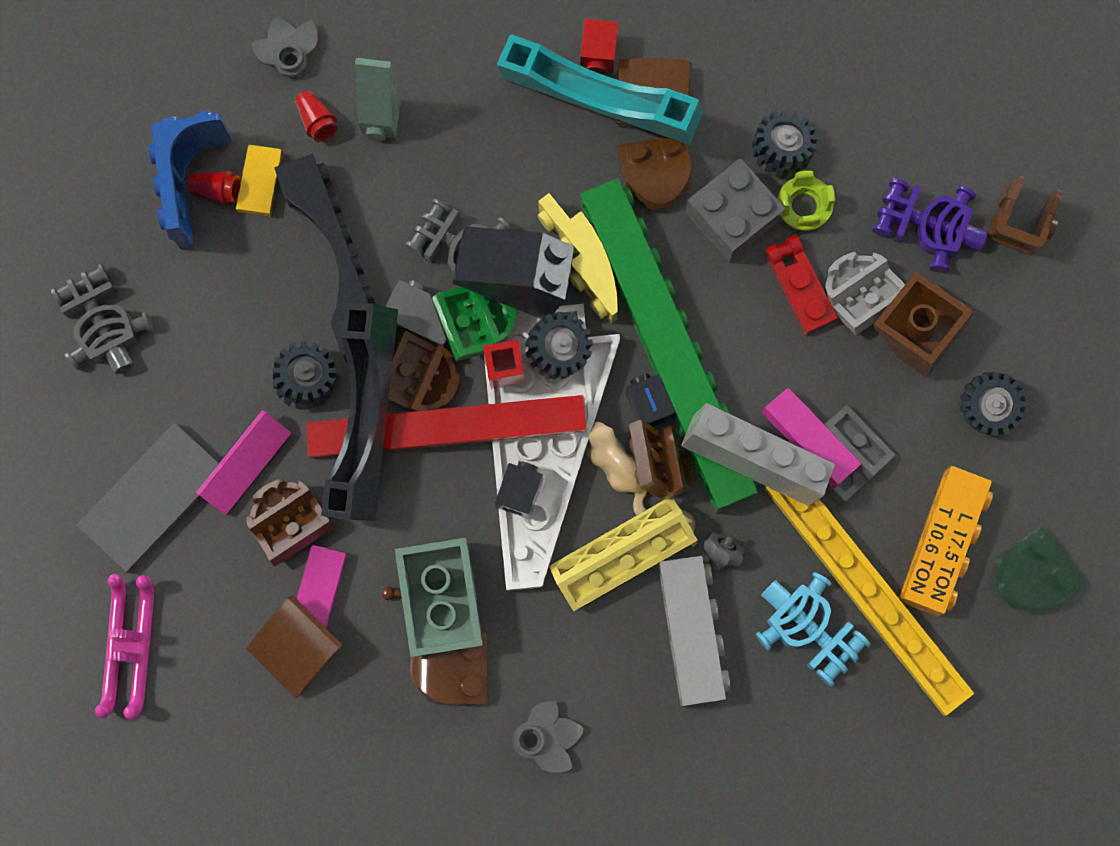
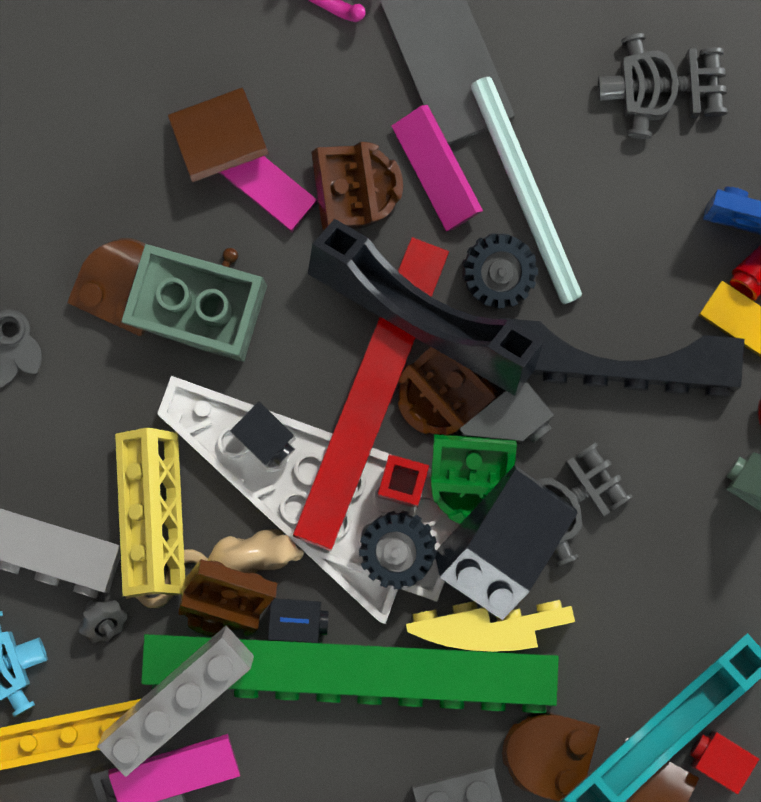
camera: 115 degrees right, 5 degrees up
(229, 386) = (526, 190): none -> light aqua axle

